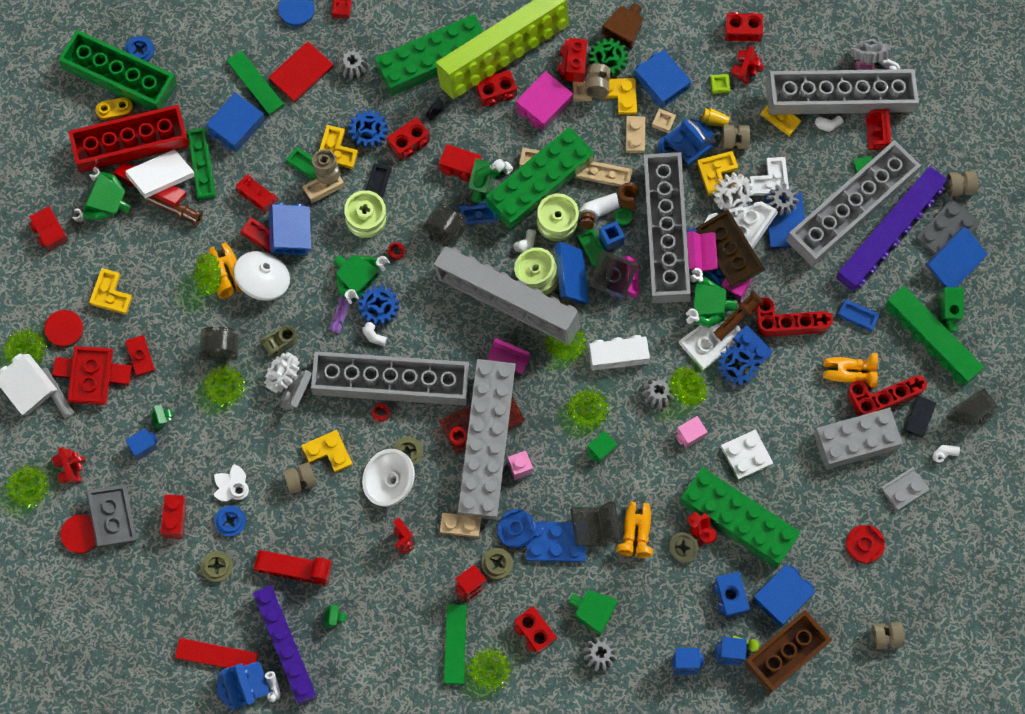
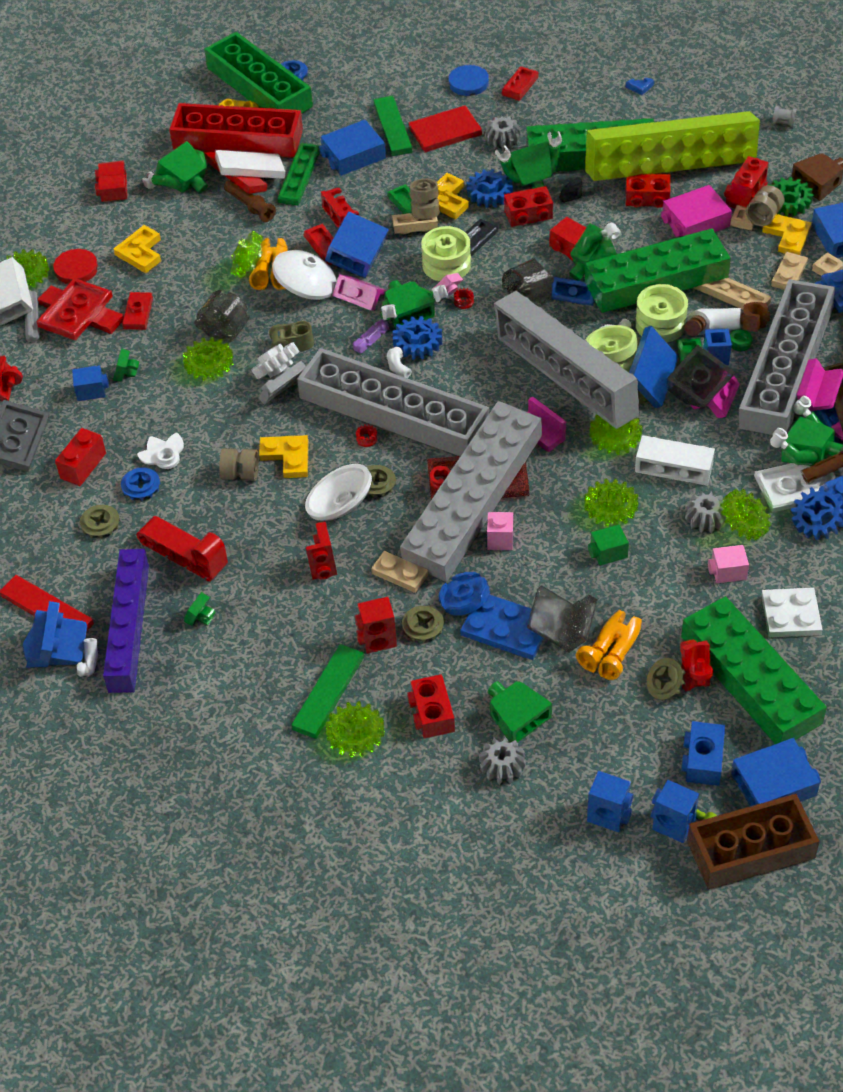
camera: 30 degrees right, 20 degrees down
(311, 273) = (357, 292): none -> panel
(380, 246) = (450, 282): none -> bright pink plate
(397, 98) = (532, 163): none -> green torso

